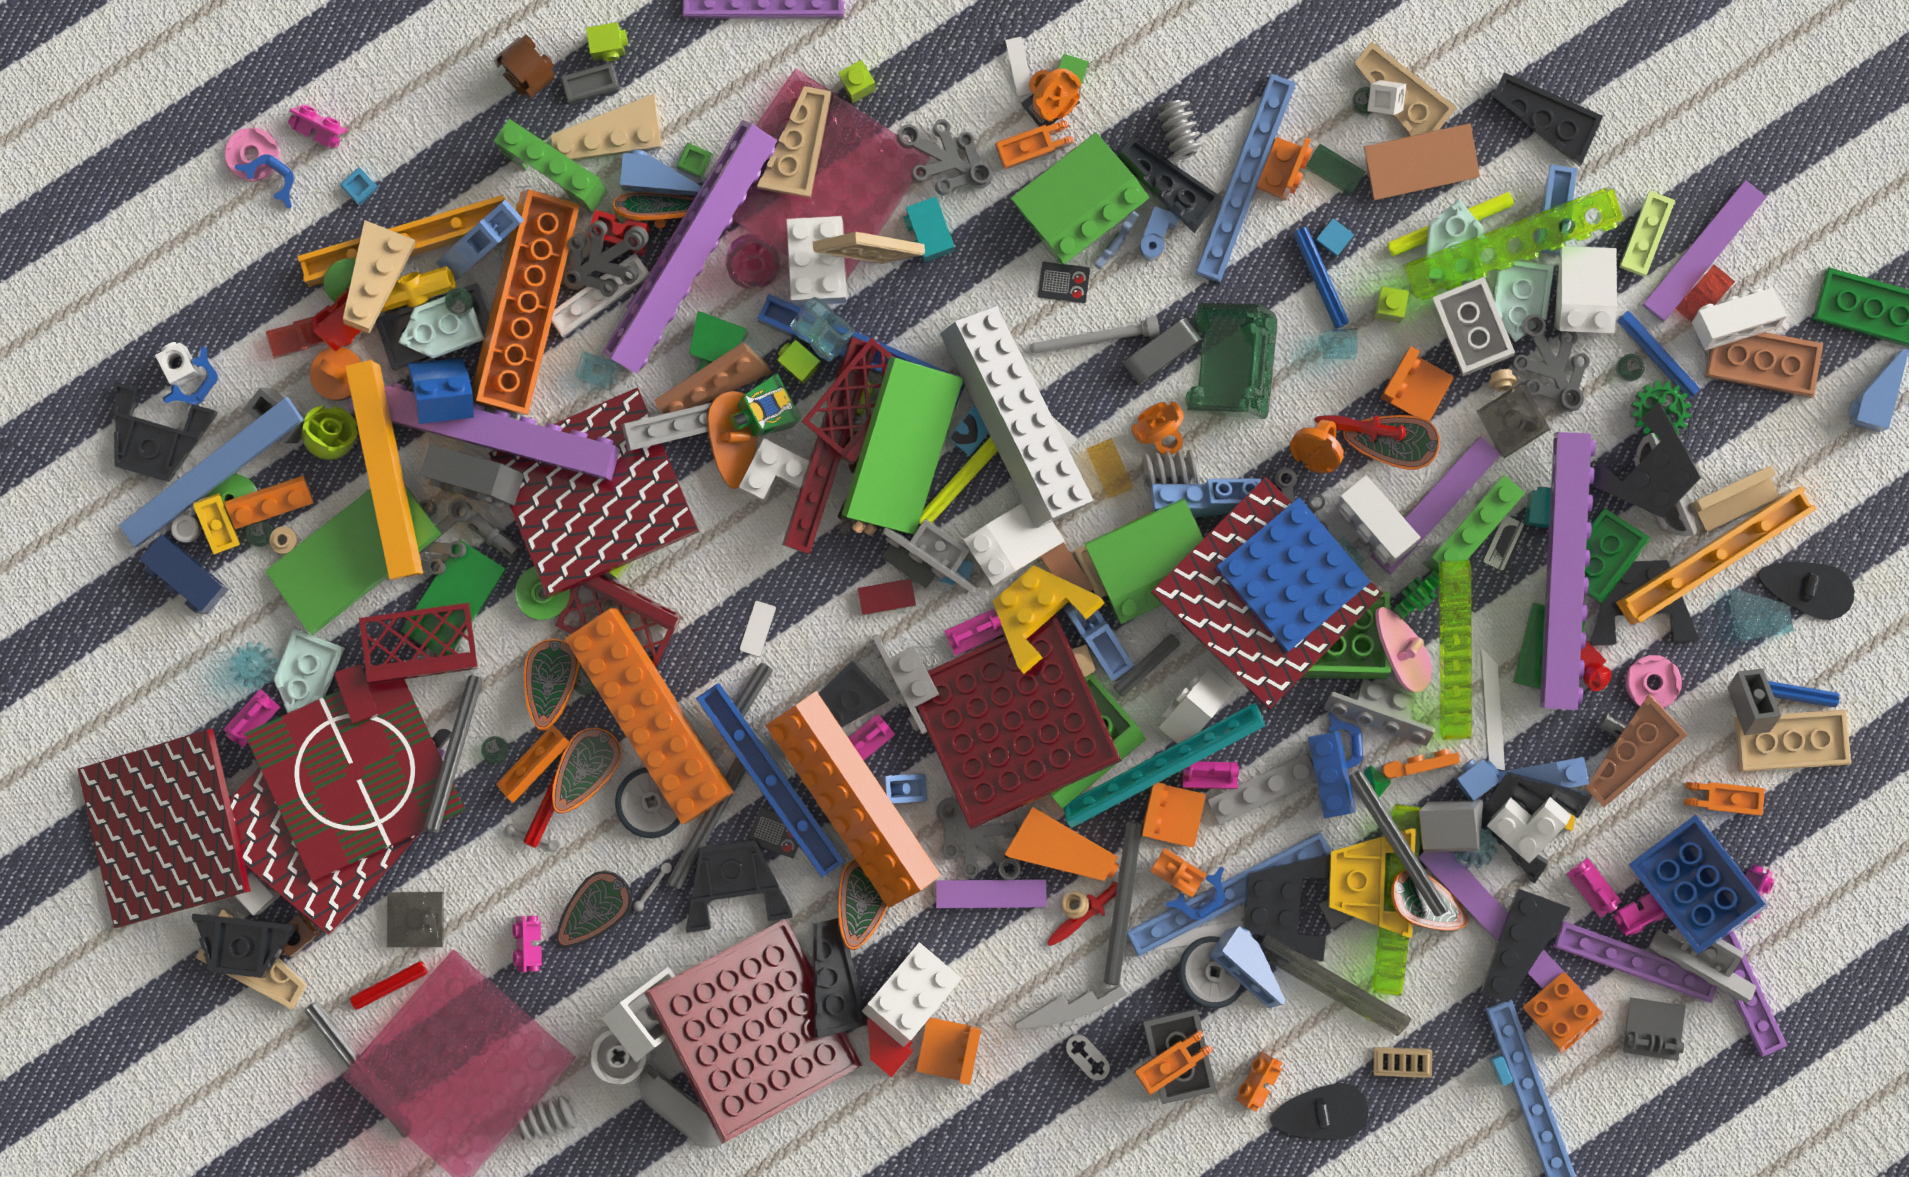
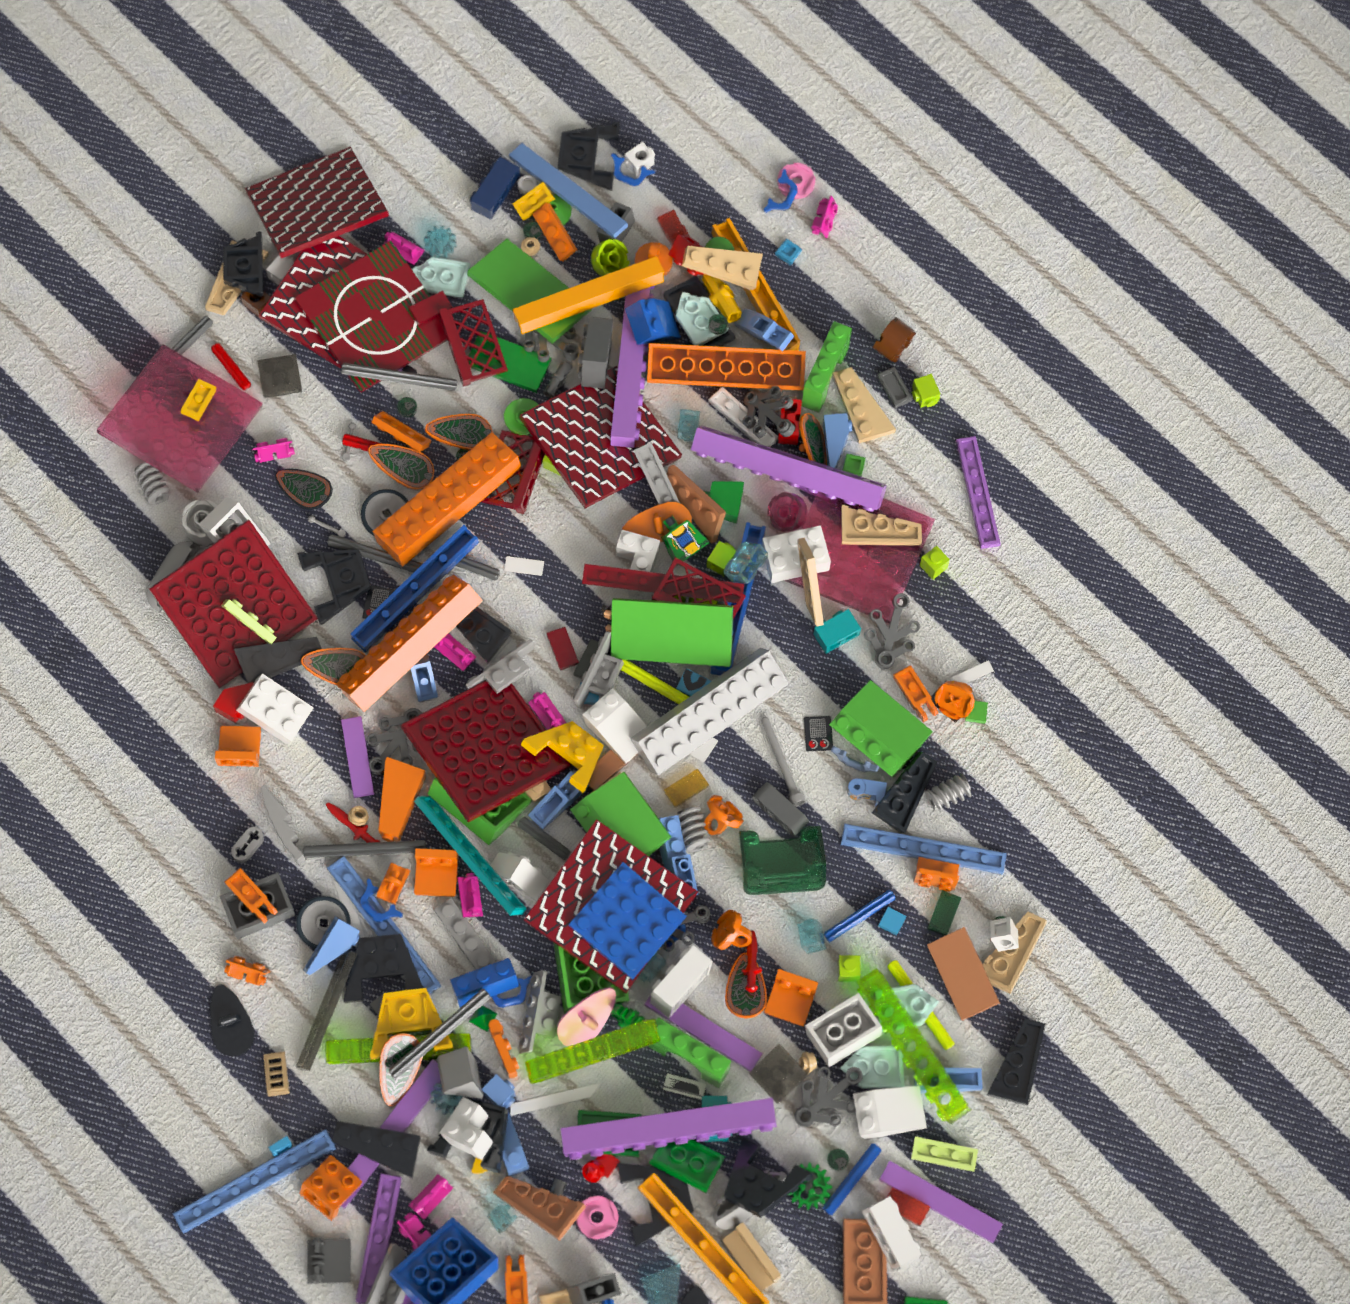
camera: 70 degrees right, 15 degrees down
(441, 1037) = (198, 400): none -> yellow plate
(784, 1011) = (249, 620): none -> yellowish green plate
(1638, 803) = (501, 1219): none -> clear light blue tile

